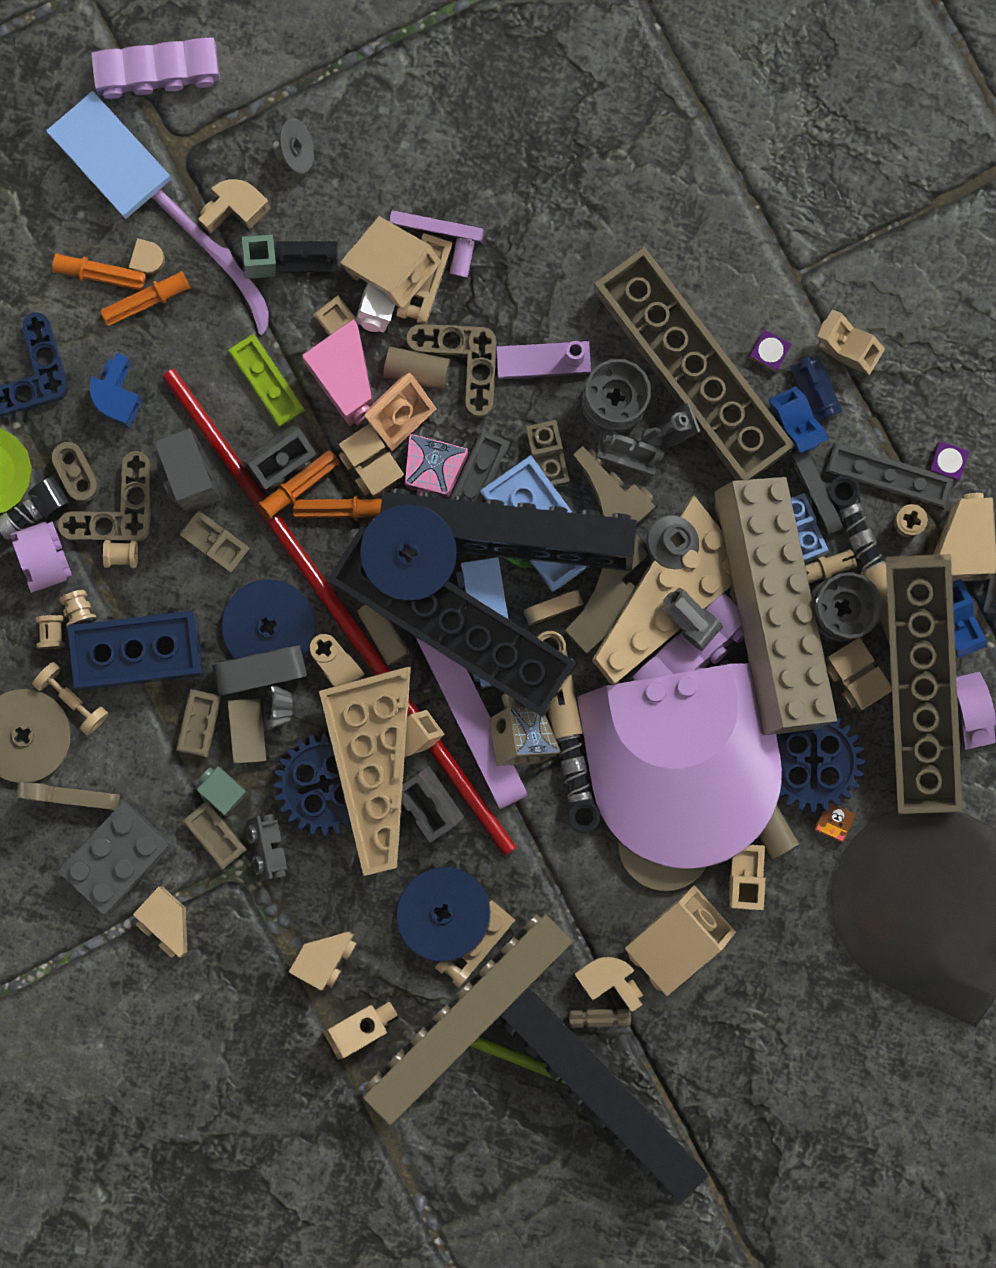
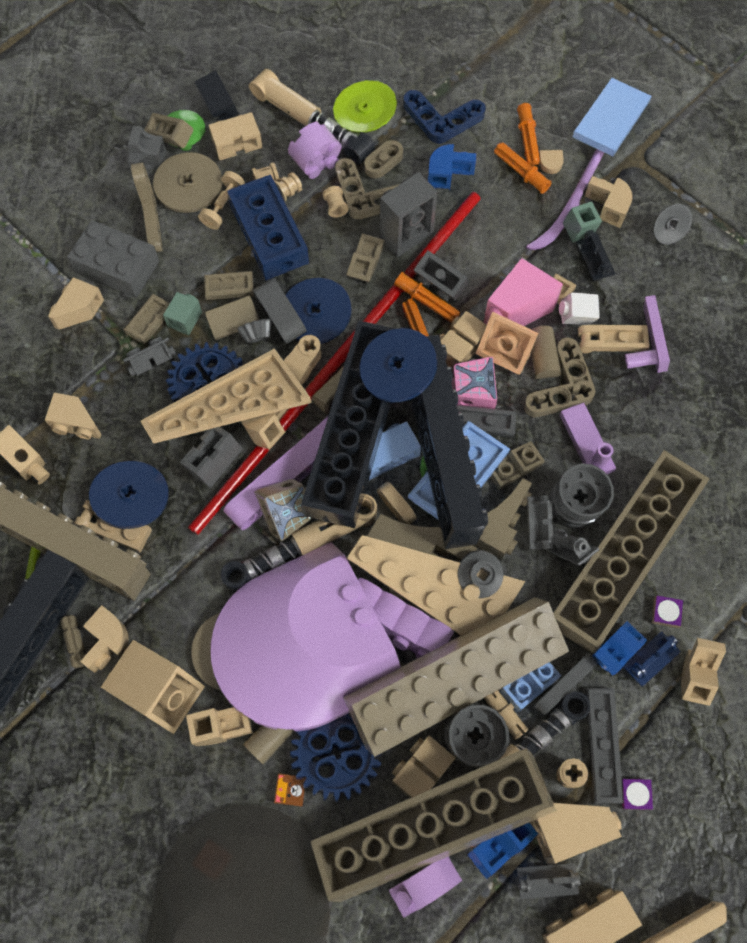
camera: 70 degrees right, 15 degrees down
(155, 66) = (688, 128): lavender brick -> none
(266, 380) = (495, 259): lime tile -> none
(391, 261) = (616, 306): tan panel -> none
(696, 623) = (419, 609): dark grey piece -> none

